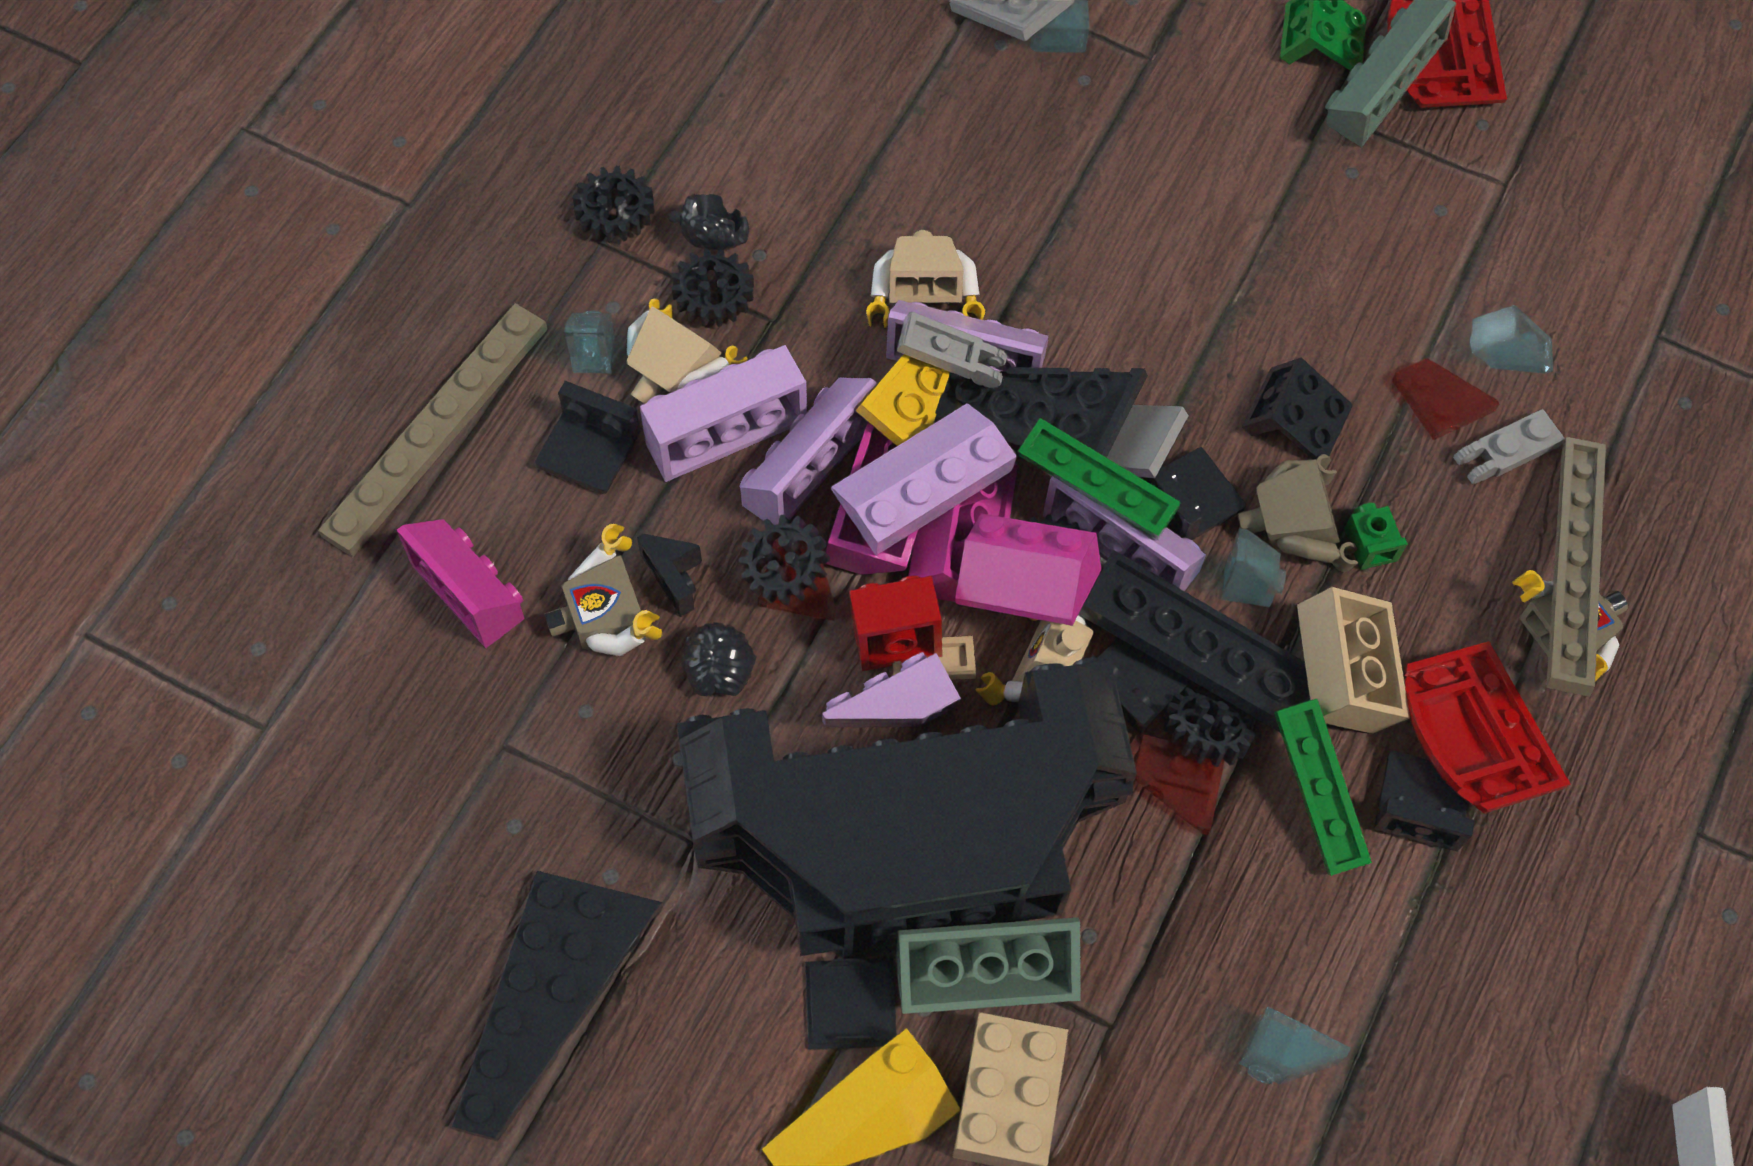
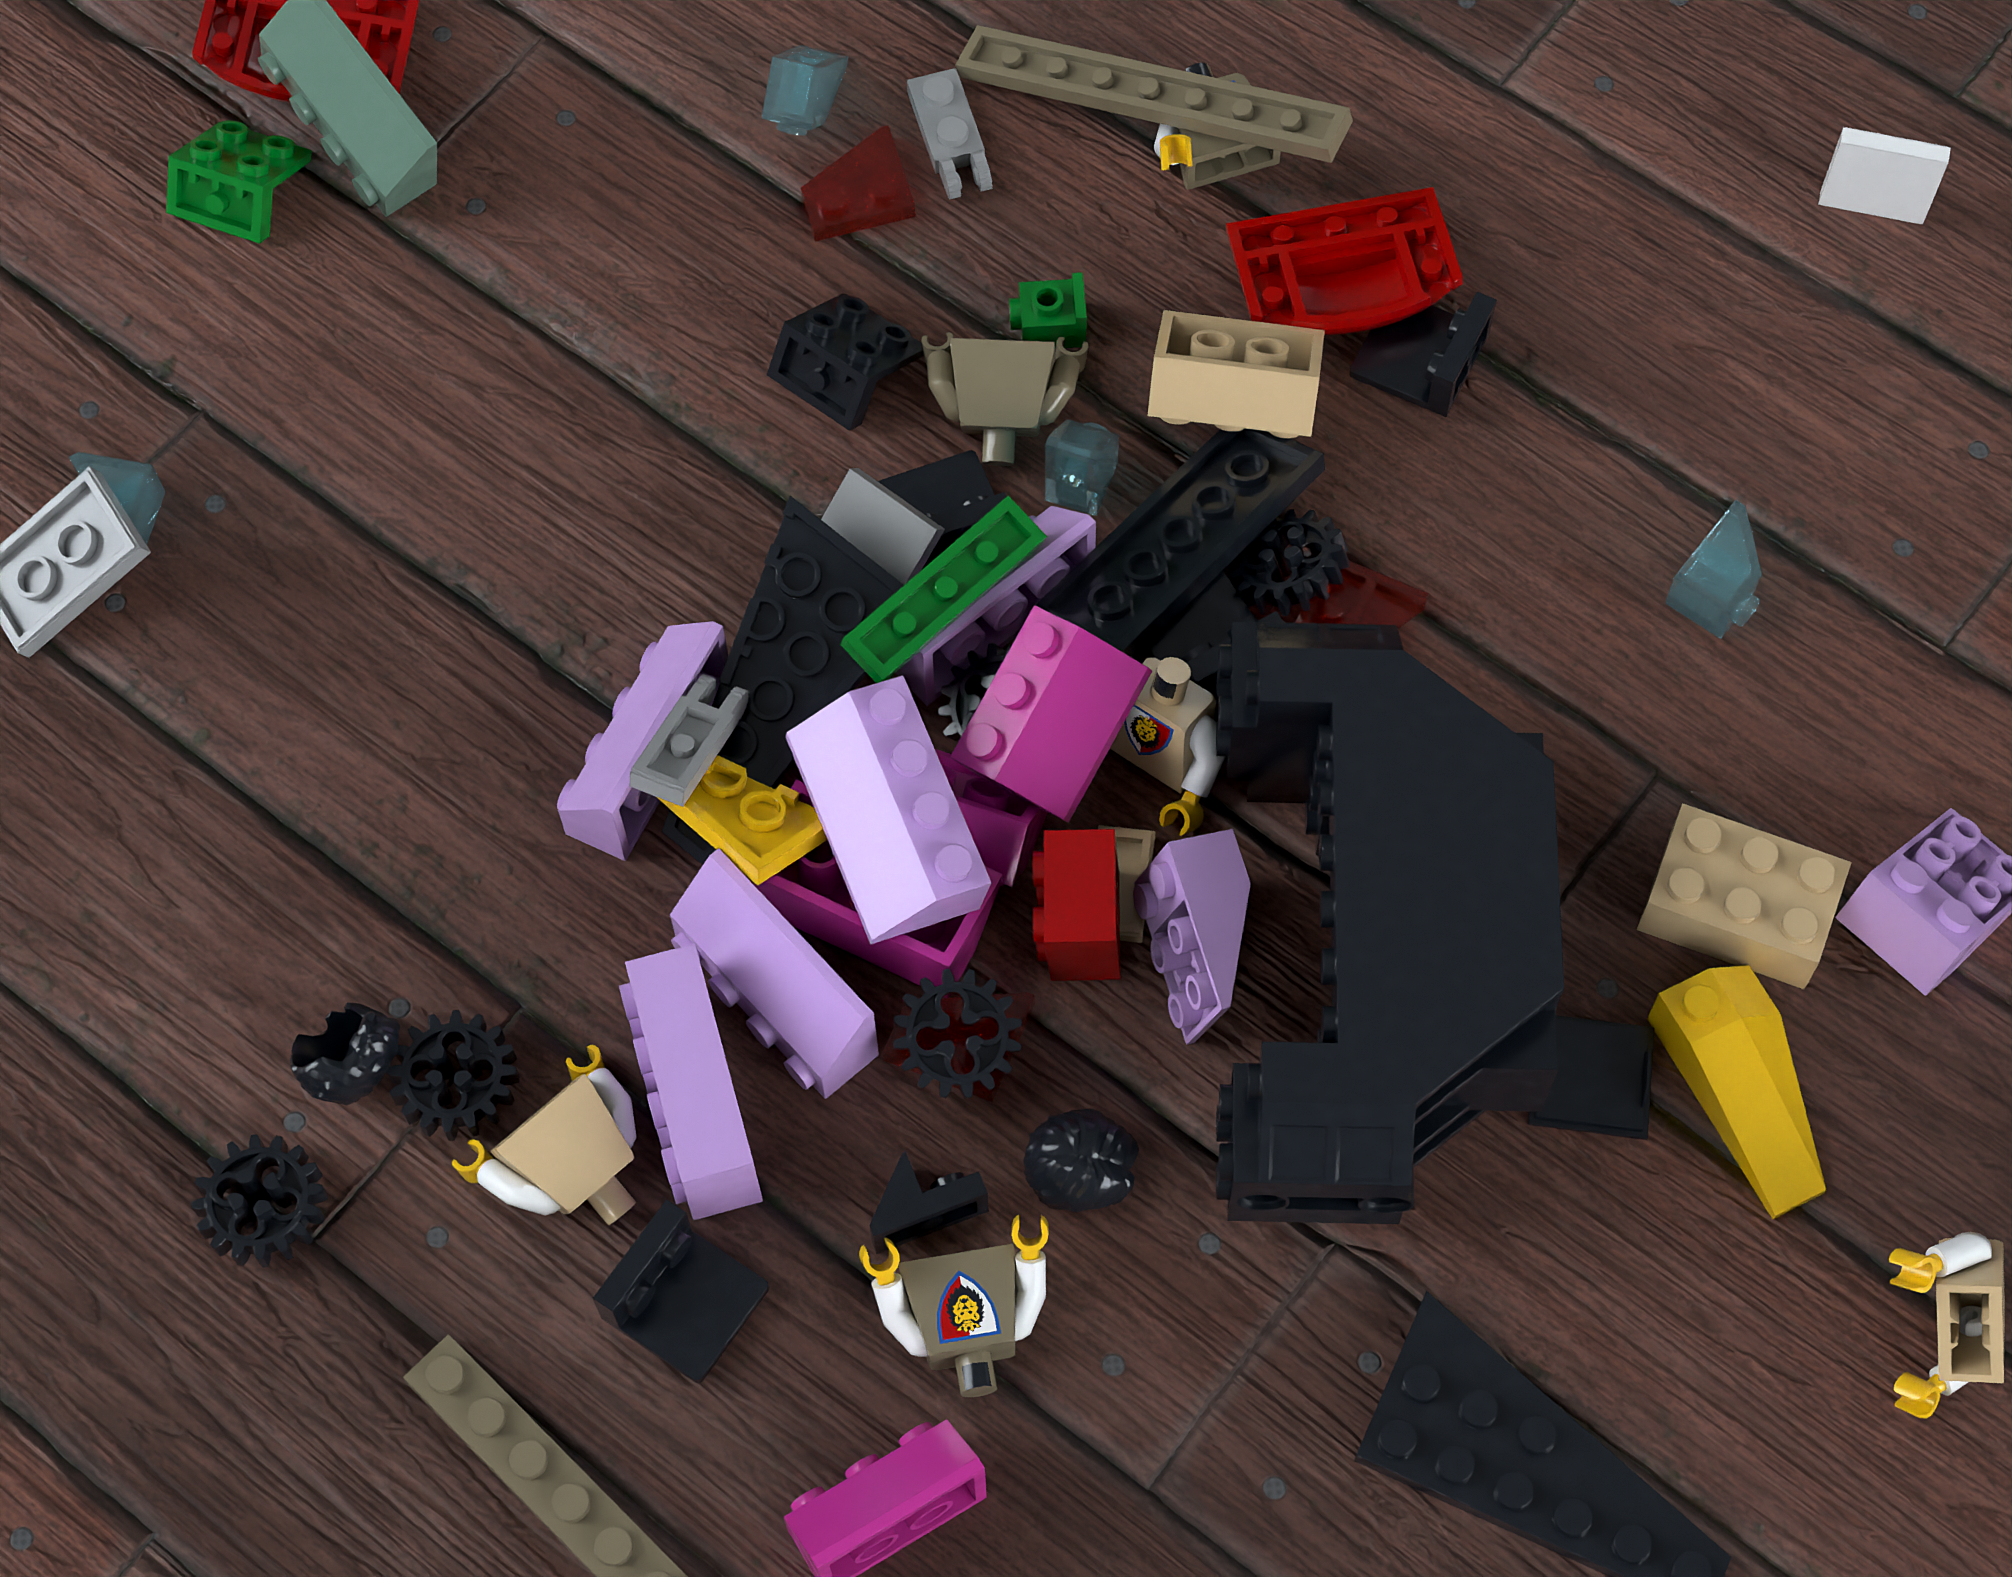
camera: 75 degrees left, 0 degrees up
(590, 342) = (508, 1262): clear light blue slope -> none
(924, 271) = (513, 772): tan torso -> none
(989, 965) = (1595, 880): sand green slope -> none
(1322, 787) = (1396, 449): green plate -> none

